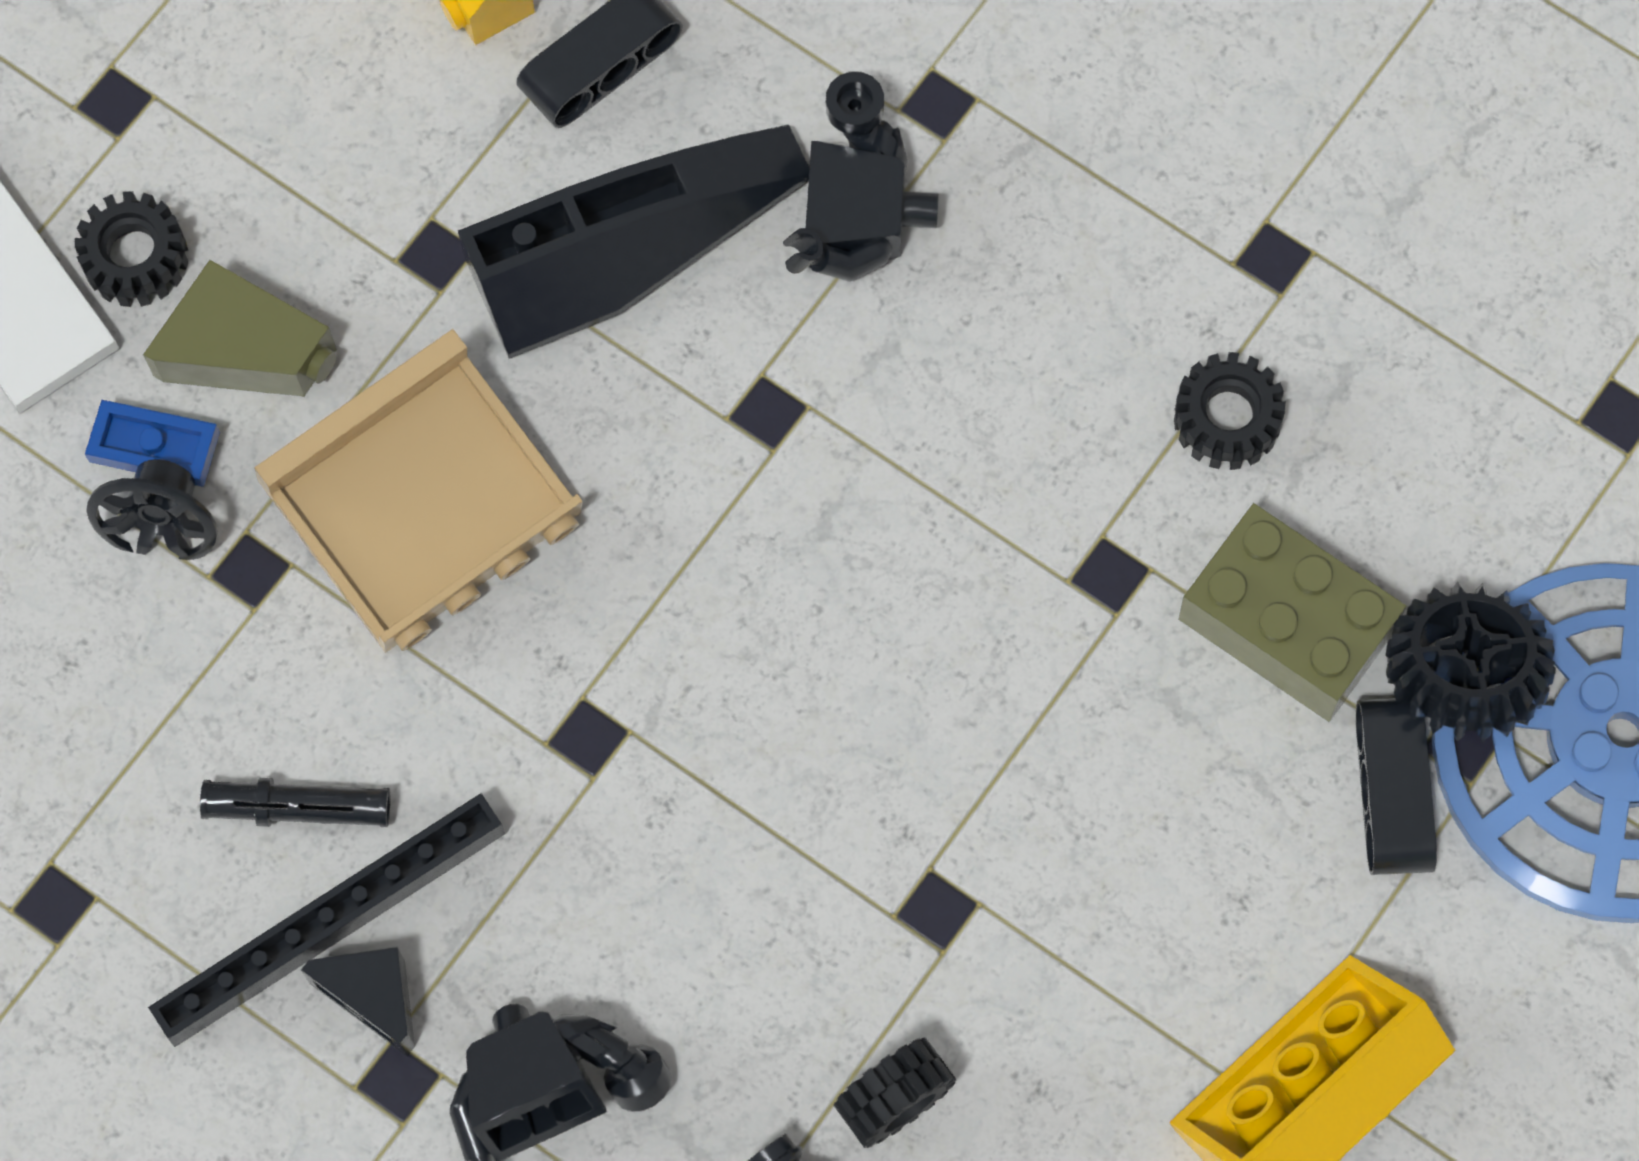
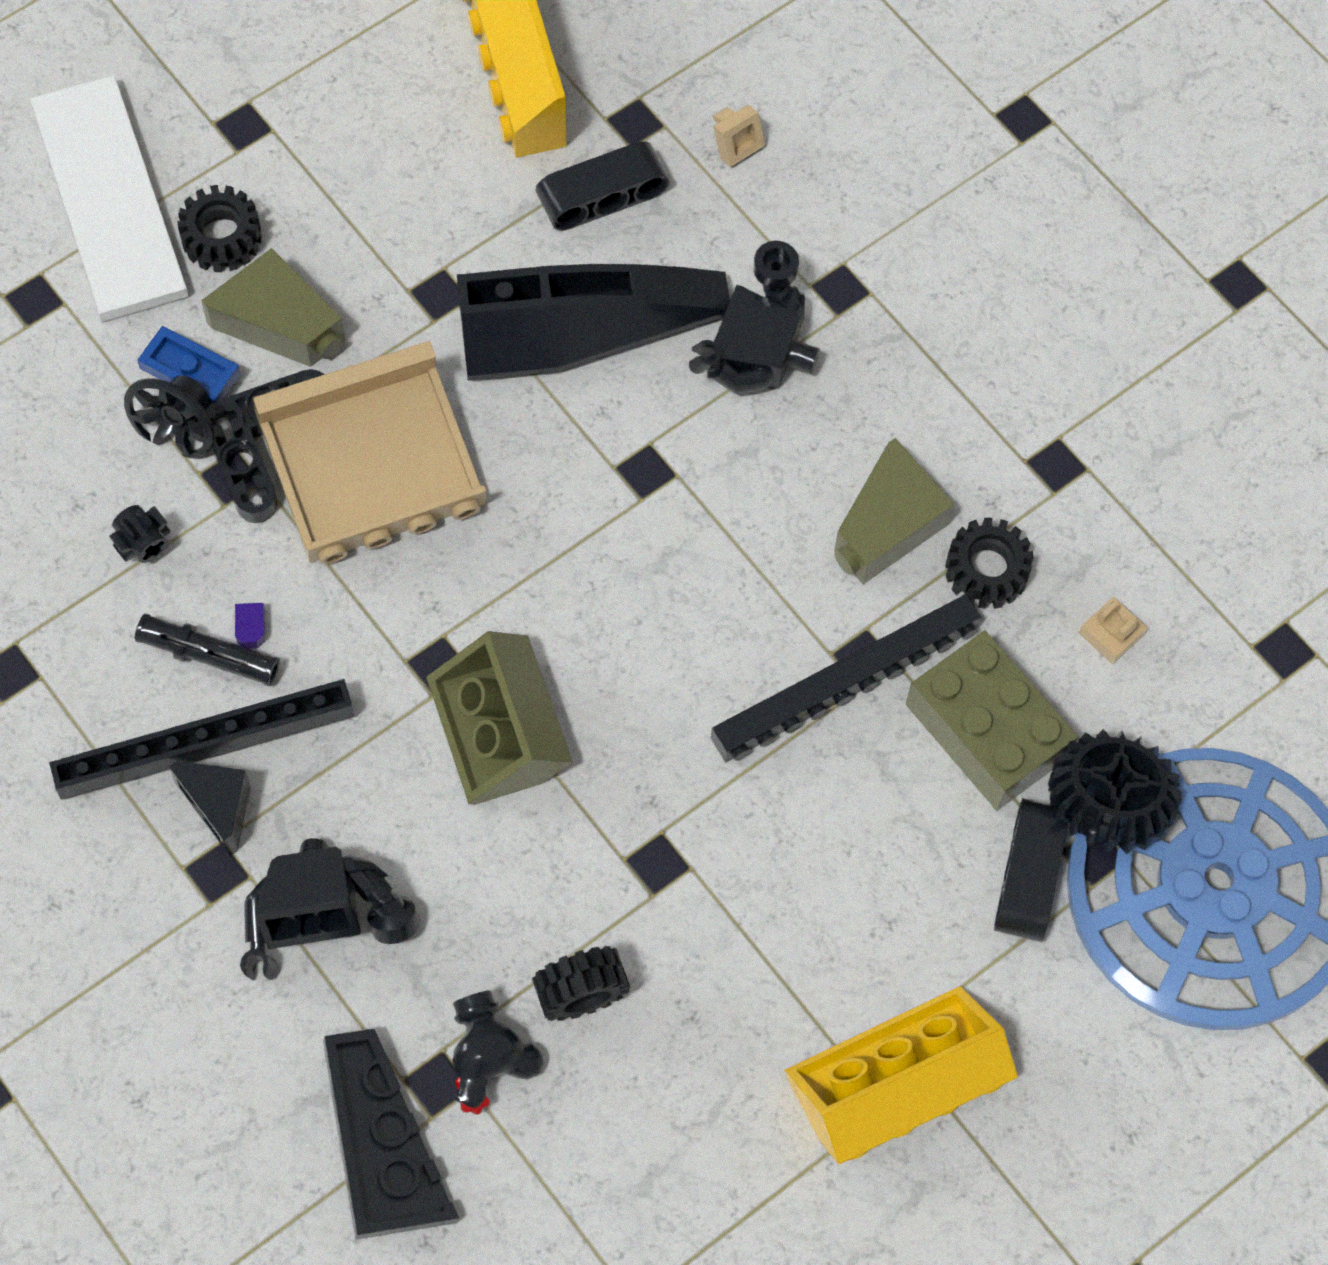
camera: 10 degrees right, 5 degrees down
(163, 679) = (140, 533): none -> black gear
(250, 498) = (245, 427): none -> black beam
(337, 755) = (250, 624): none -> dark purple piece
(686, 785) = (498, 717): none -> olive slope
(1091, 384) = (890, 515): none -> olive slope
(1096, 609) = (845, 678): none -> black piece
(1404, 452) = (1113, 630): none -> tan tile

